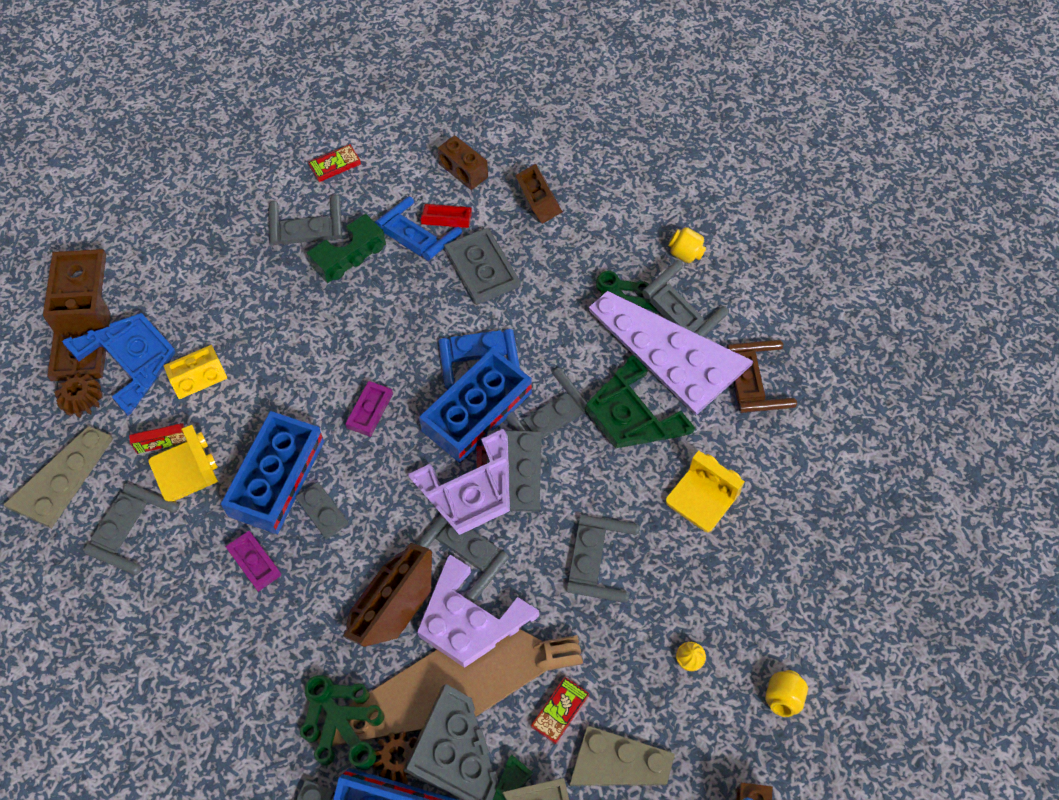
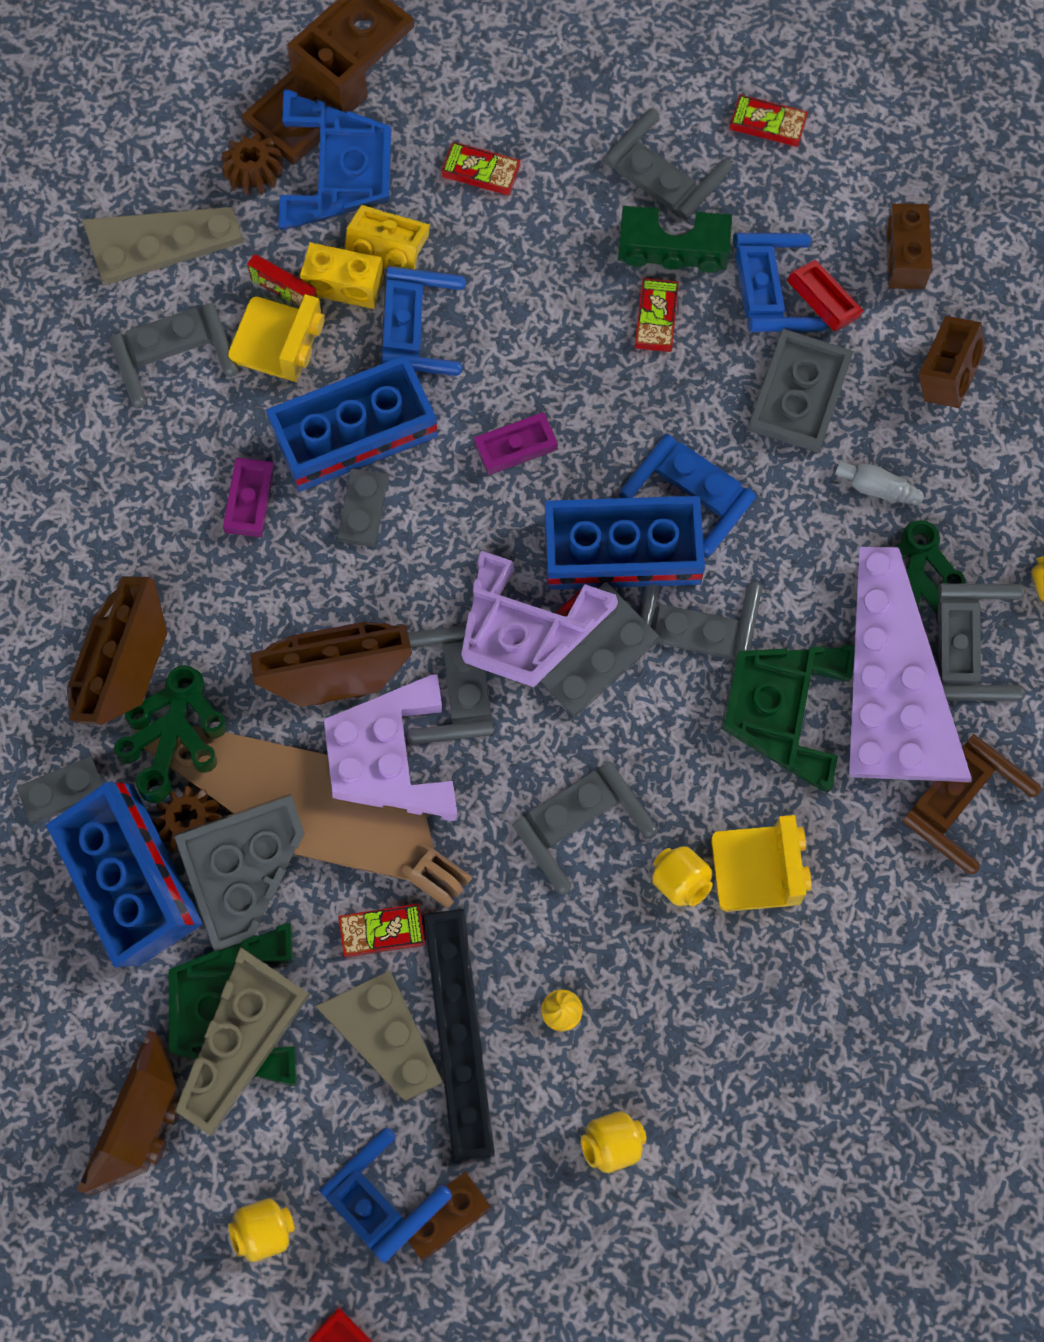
camera: 45 degrees right, 10 degrees up
(190, 404) = (343, 275): none -> yellow brick
(210, 297) = (480, 168): none -> tile
(245, 399) = (404, 315): none -> blue plate
(264, 709) = (118, 653): none -> reddish brown wedge
(374, 291) = (656, 315): none -> tile
(563, 274) = (880, 483): none -> light grey piece
(656, 722) = (459, 1035): none -> black tile
(675, 533) = (682, 876): none -> yellow head

